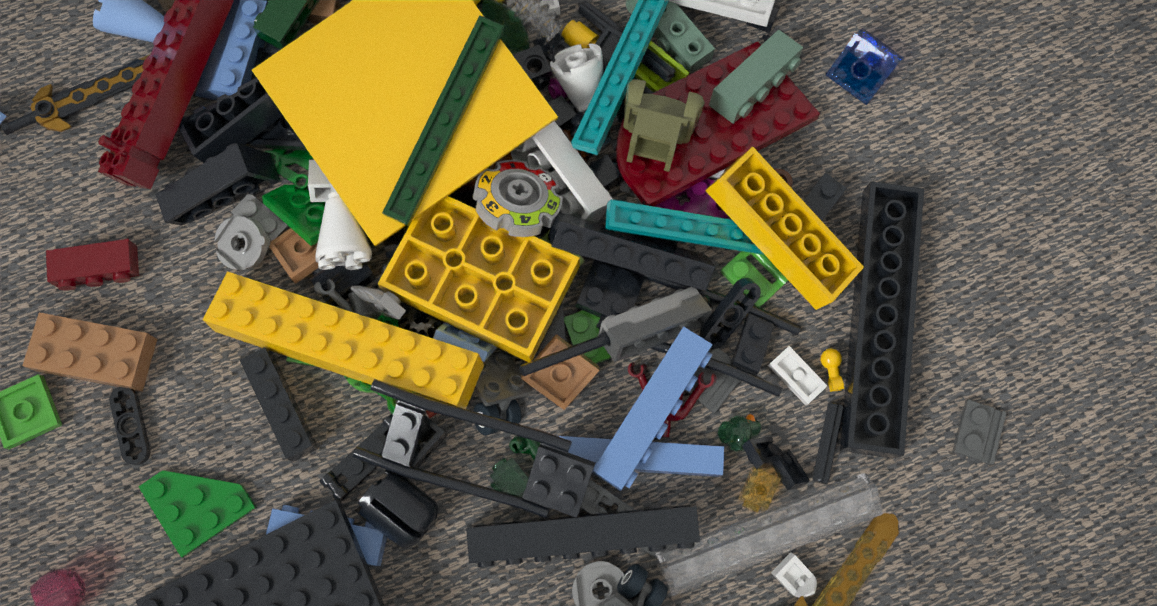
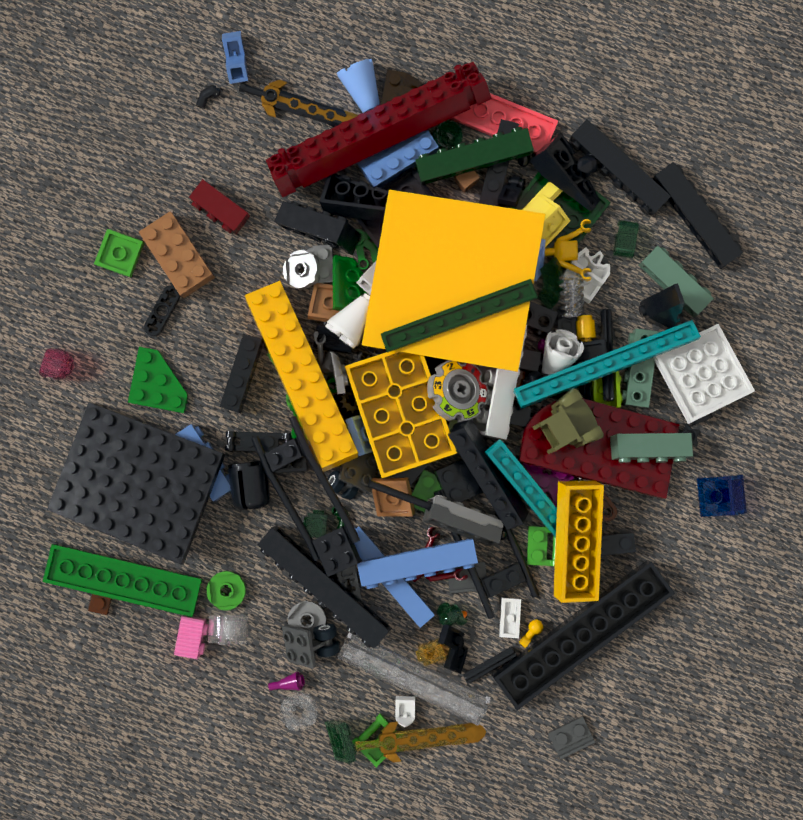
camera: 55 degrees right, 10 degrees up
(747, 302) = (520, 553): black beam -> none

